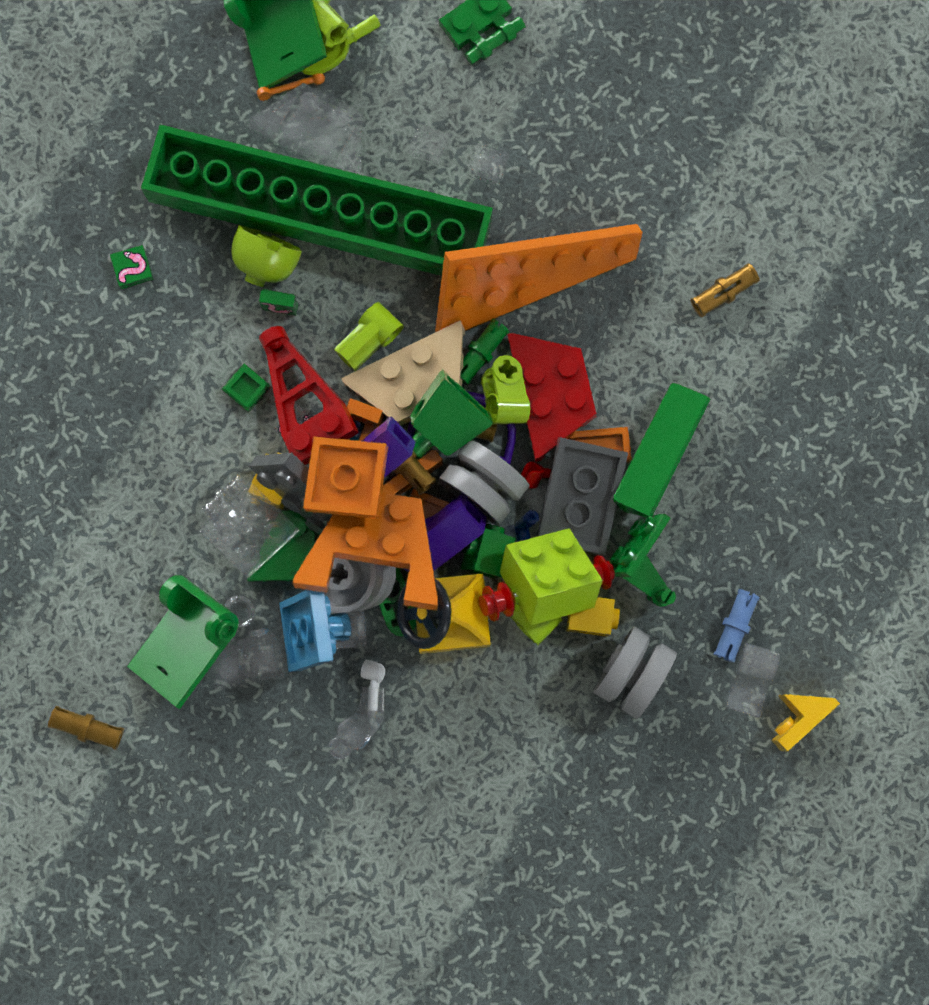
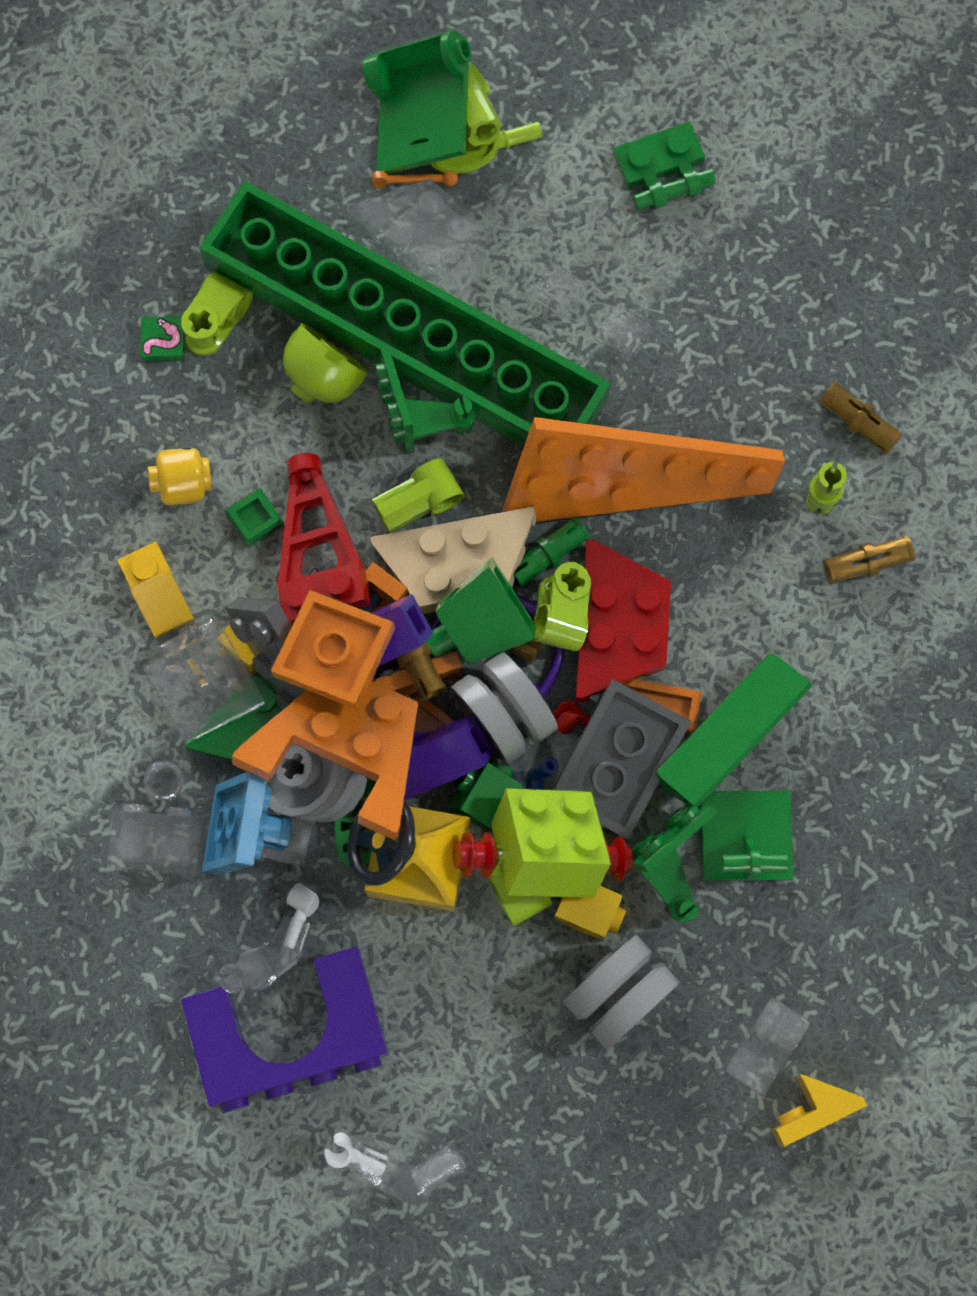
camera: 20 degrees right, 5 degrees down
(167, 230) = (217, 306): none -> lime piece
(179, 372) = (180, 476): none -> yellow head
(184, 640) = (87, 796): green door -> none
(186, 465) = (155, 589): none -> yellow slope
(278, 302) = (322, 426): green tile -> none
(348, 276) = (418, 418): none -> green plate
(360, 815) = (235, 1072): none -> dark purple arch
(503, 857) = (392, 1176): none -> clear arm
(679, 244) = (826, 488): none -> lime pin
(688, 182) = (860, 418): none -> pearl gold pin
(696, 527) = (748, 837): none -> green plate
(736, 625) = (766, 973): medium blue pin -> none

